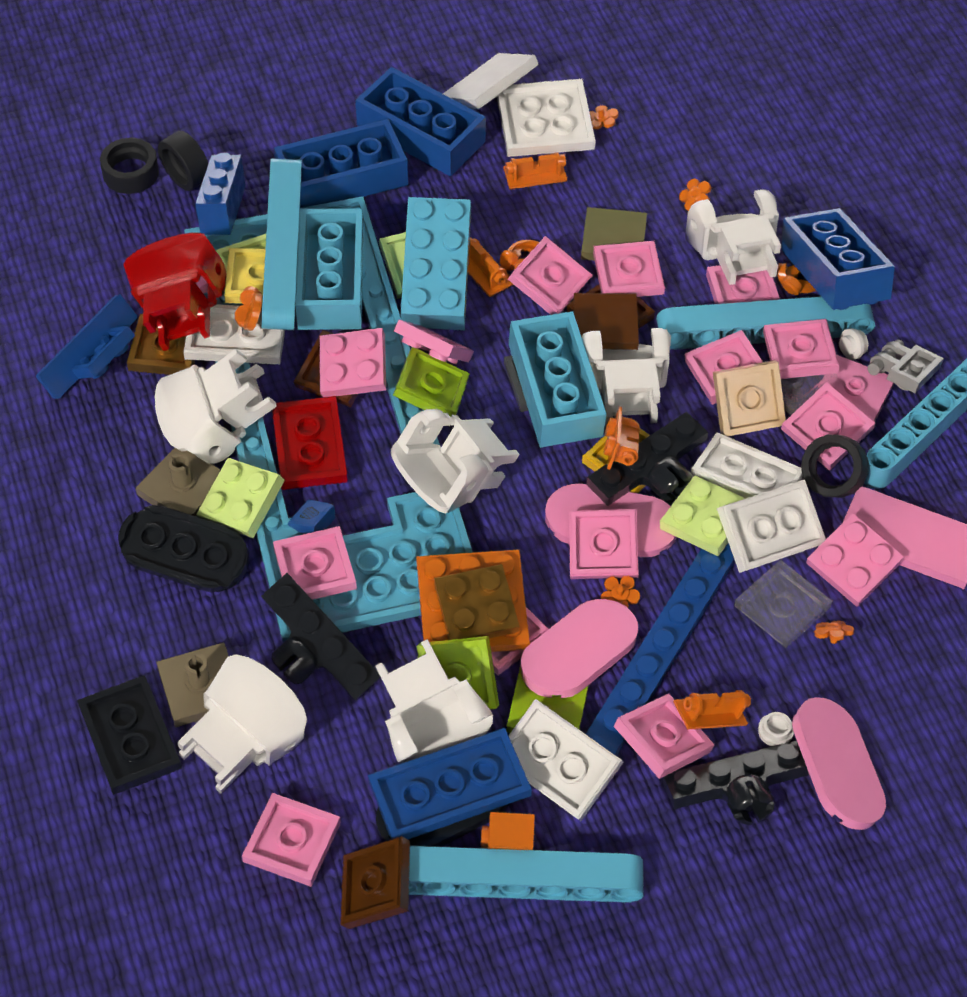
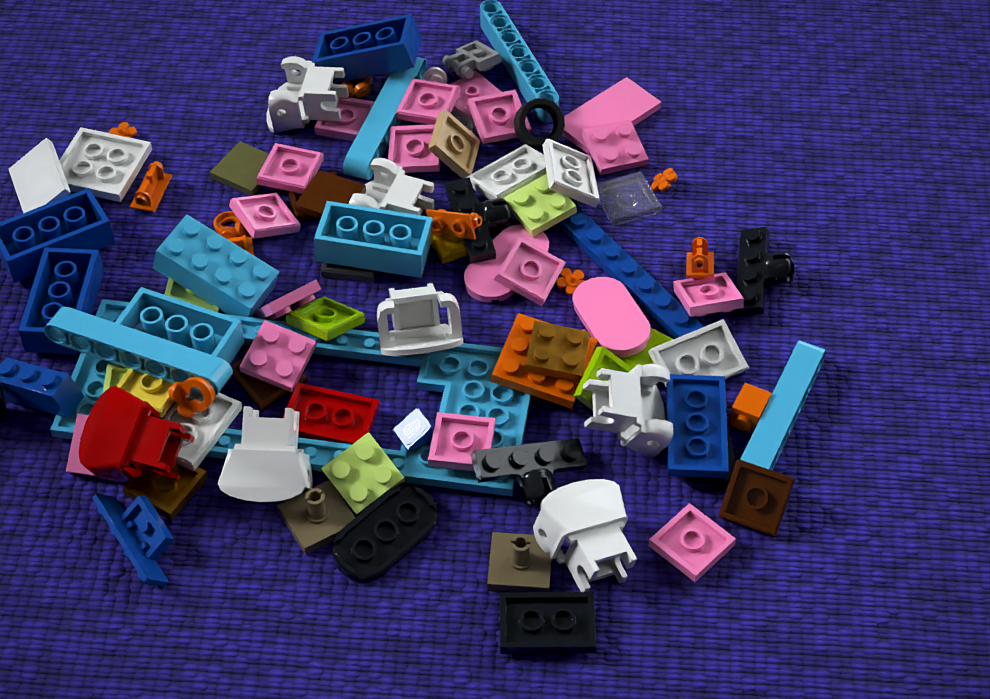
camera: 65 degrees left, 5 degrees down
(696, 192) = (241, 109): orange plant -> none
(775, 729) = (726, 238): white plate -> none
(839, 763) = (770, 214): bright pink tile -> none

